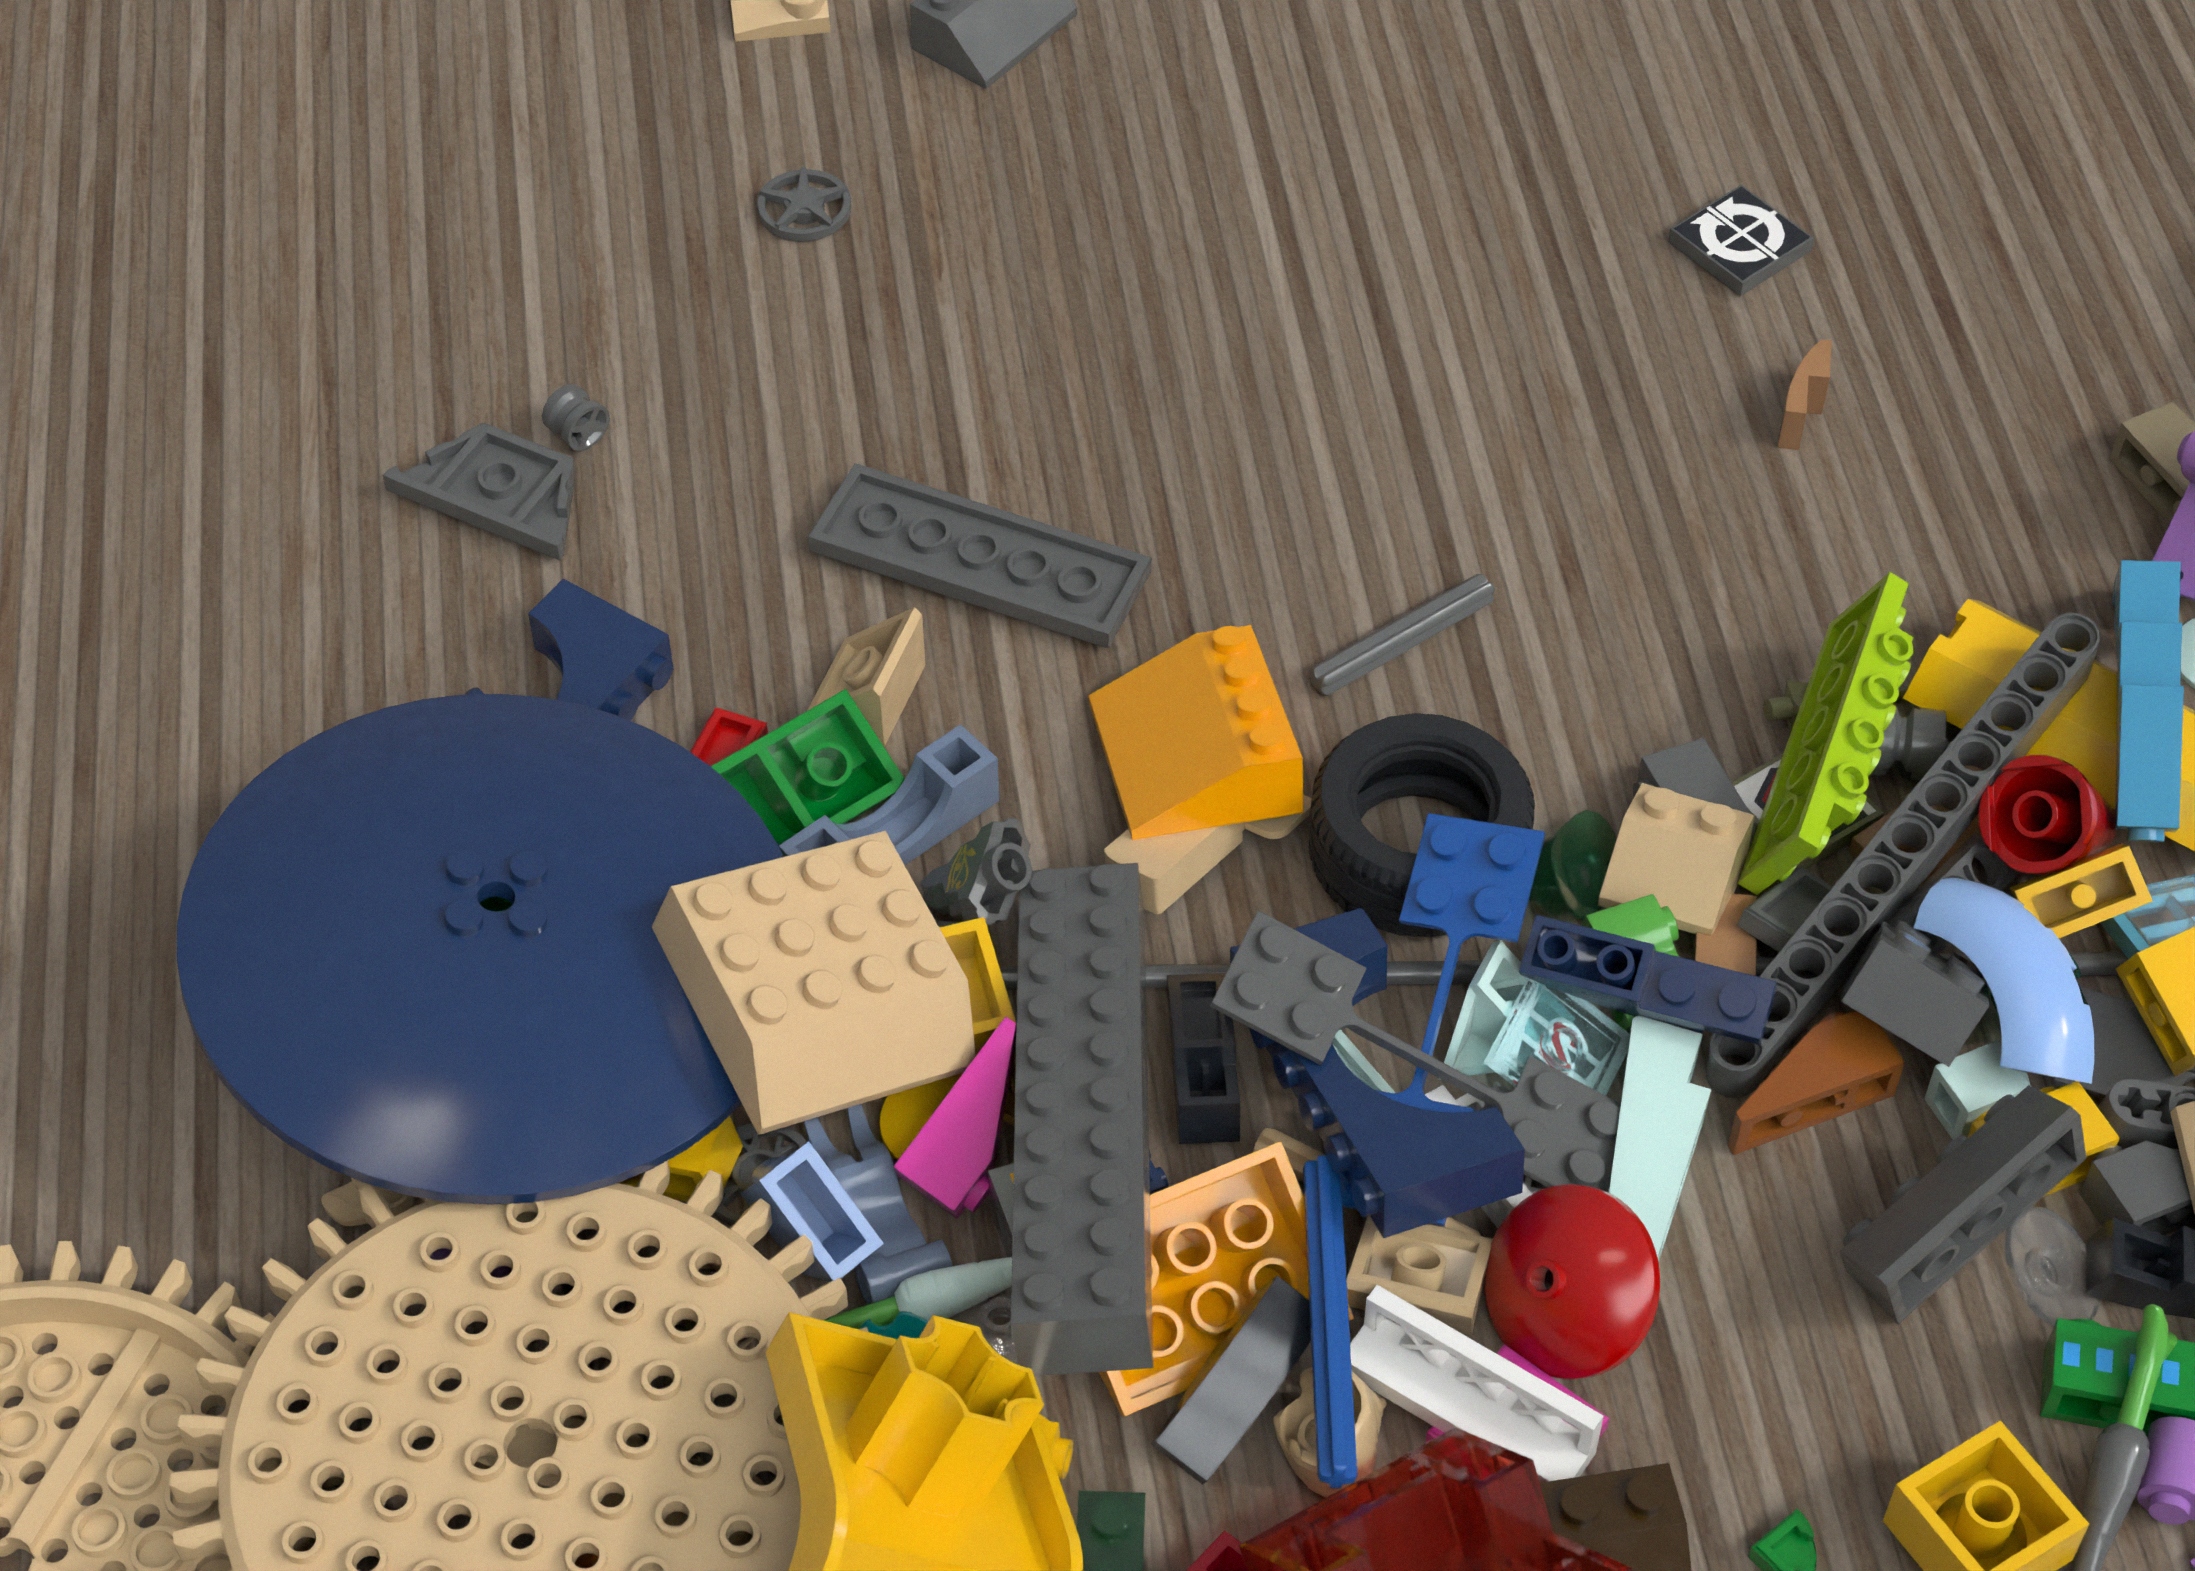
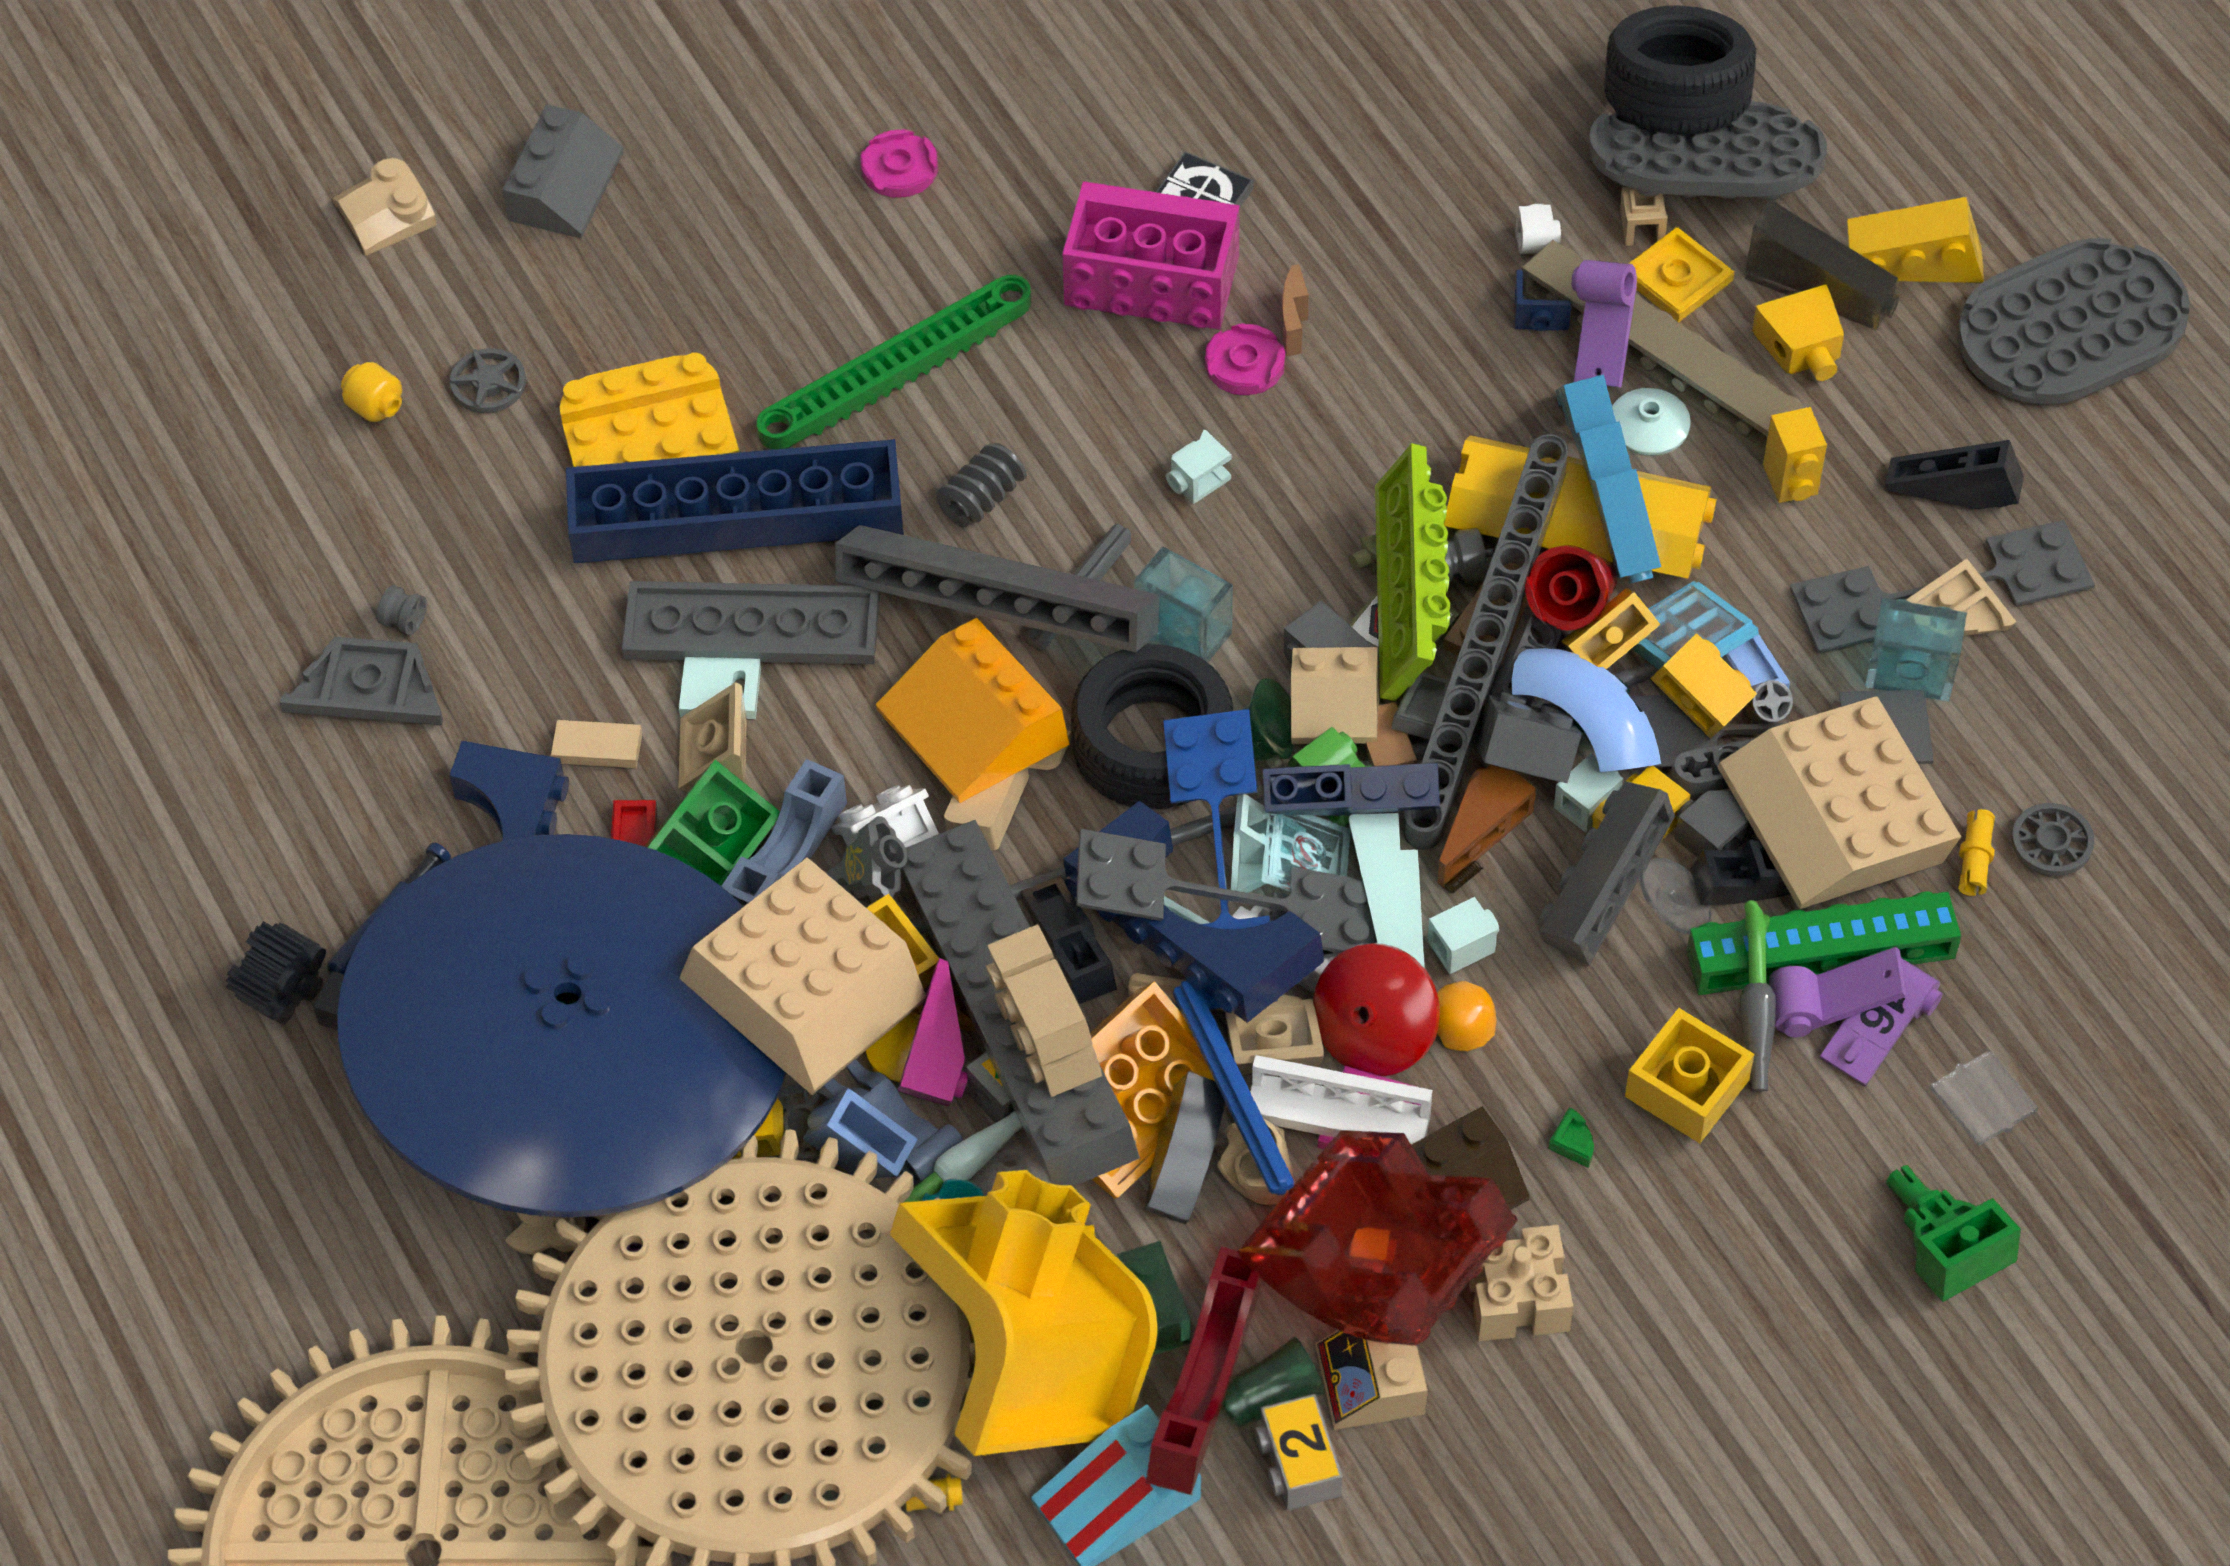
camera: 20 degrees left, 5 degrees up
(202, 769) = (277, 971): none -> black brick
(662, 175) = (371, 391): none -> yellow head
(729, 637) = (597, 743): none -> tan tile
(895, 594) = (709, 676): none -> light aqua piece
(961, 299) = (647, 413): none -> yellow plate
(1021, 409) = (732, 500): none -> dark blue brick
(1055, 831) = (902, 810): none -> white bracket
(1087, 1121) = (1044, 1011): none -> tan piece
(1286, 316) = (894, 363): none -> green gear
(1295, 599) = (997, 588): none -> dark grey brick
(1328, 475) = (980, 484): none -> dark grey piece
(1390, 109) = (899, 163): none -> dark pink tile
(1521, 689) = (1192, 603): none -> clear light blue brick
(1611, 540) = (1199, 468): none -> light aqua window
(1649, 280) = (1151, 255): none -> dark pink brick
(1695, 1333) = (1465, 1016): none -> light orange hair
(1723, 435) = (1245, 359): none -> dark pink tile
(1733, 1222) = (1463, 934): none -> light aqua brick
(1772, 1150) = (1472, 874): none -> dark brown leg
(2125, 485) = (1539, 314): none -> dark blue bracket
(2156, 384) = (1536, 228): none -> white plate

